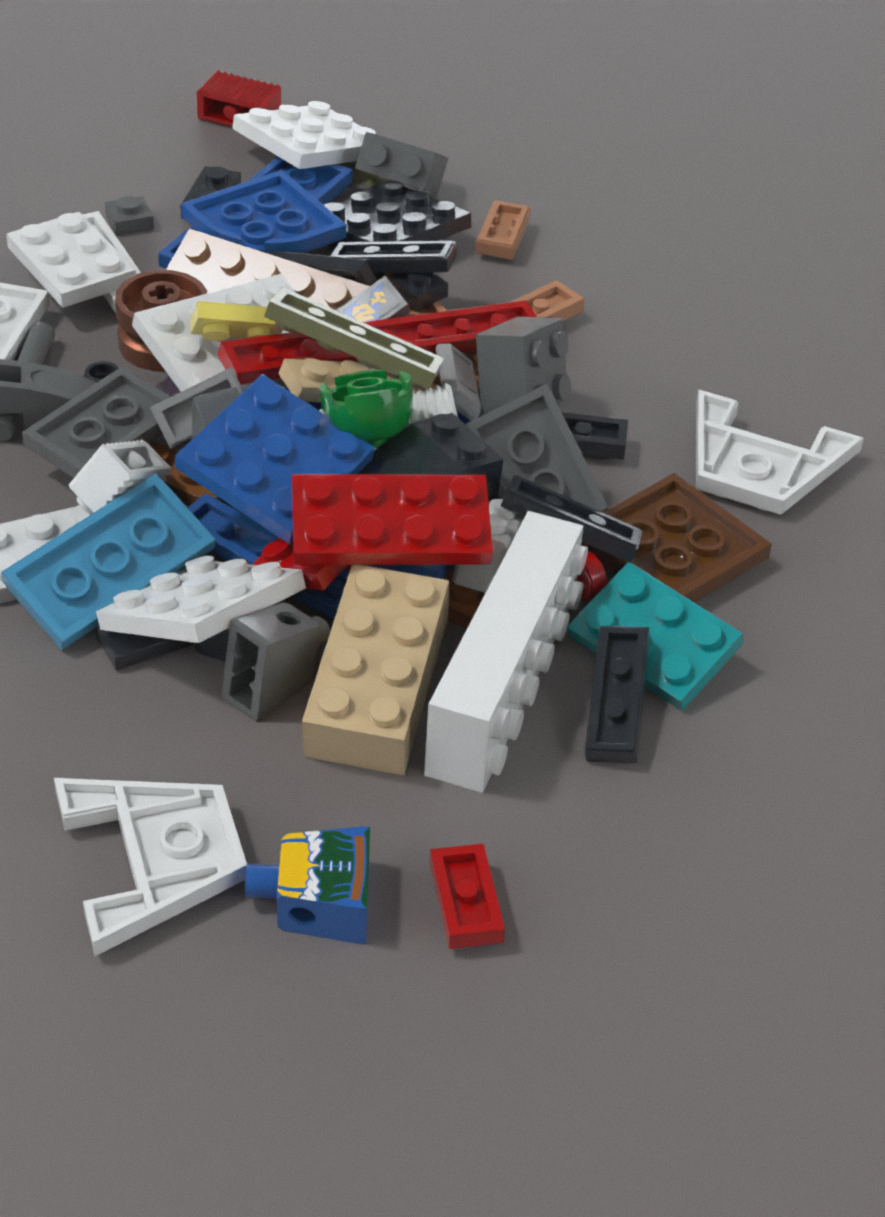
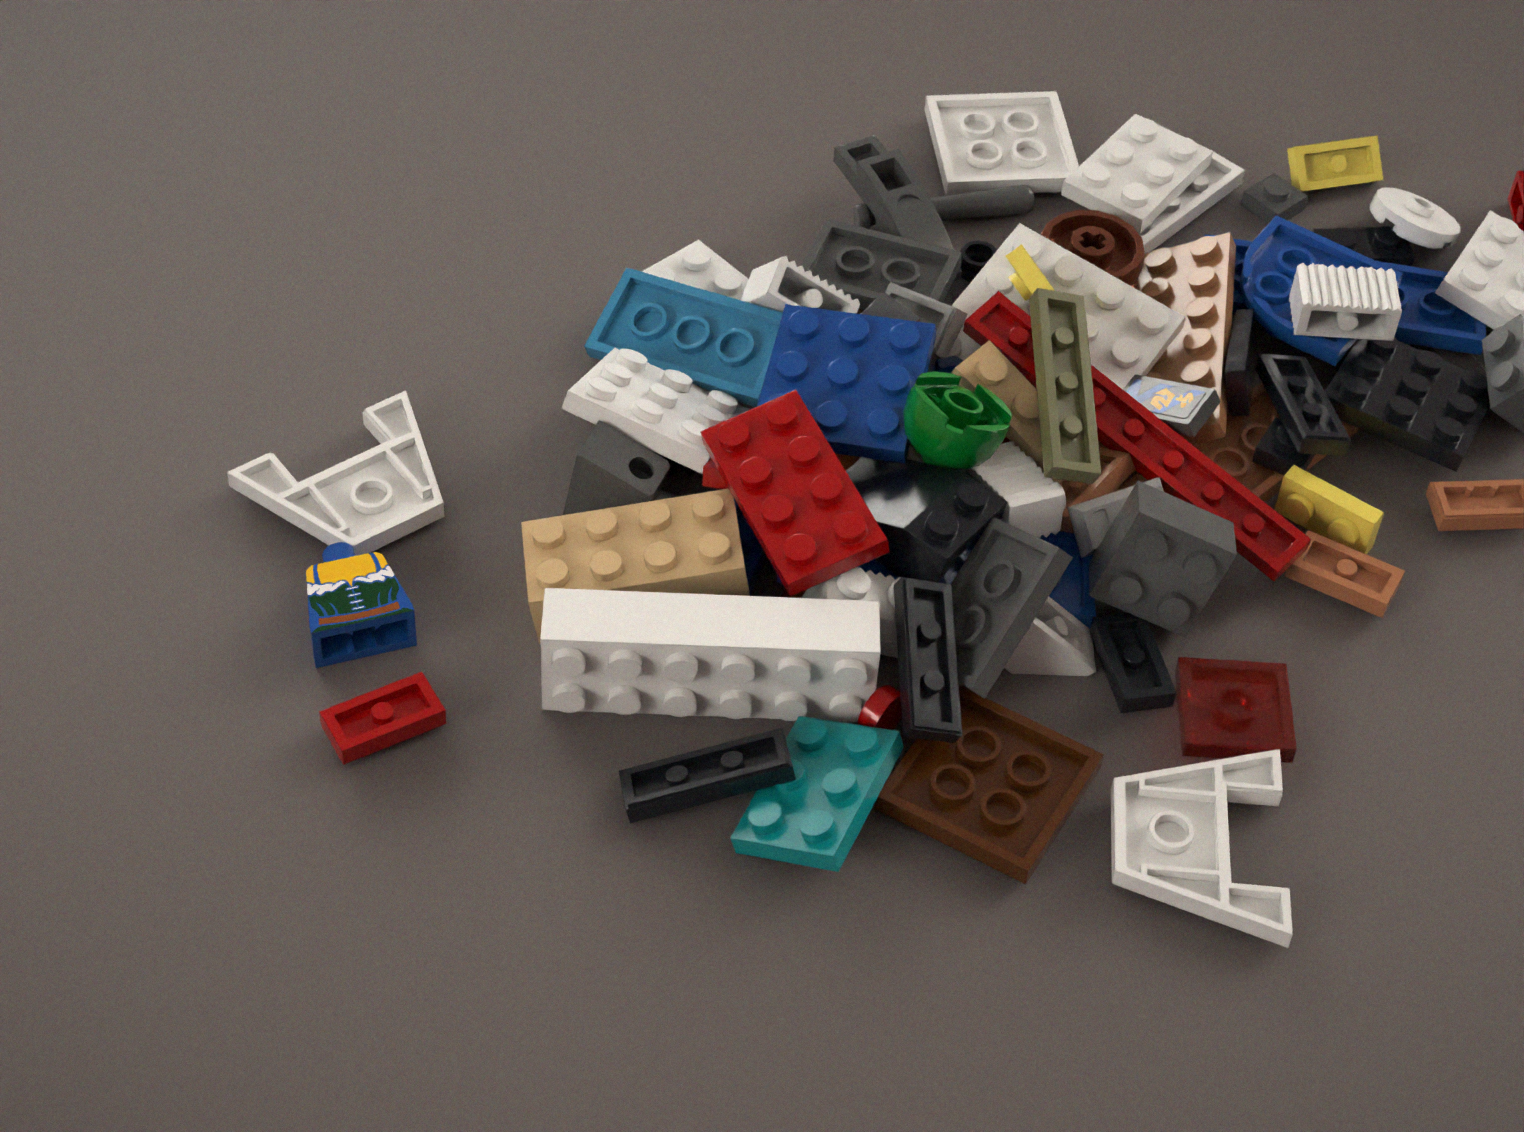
camera: 70 degrees right, 5 degrees up
(118, 169) = (1335, 164): none -> light yellow plate
(204, 154) = (1415, 218): none -> white plate
(313, 196) = (1345, 302): none -> white brick
(483, 289) = (1328, 510): none -> light yellow plate
(650, 400) = (1234, 708): none -> clear red plate

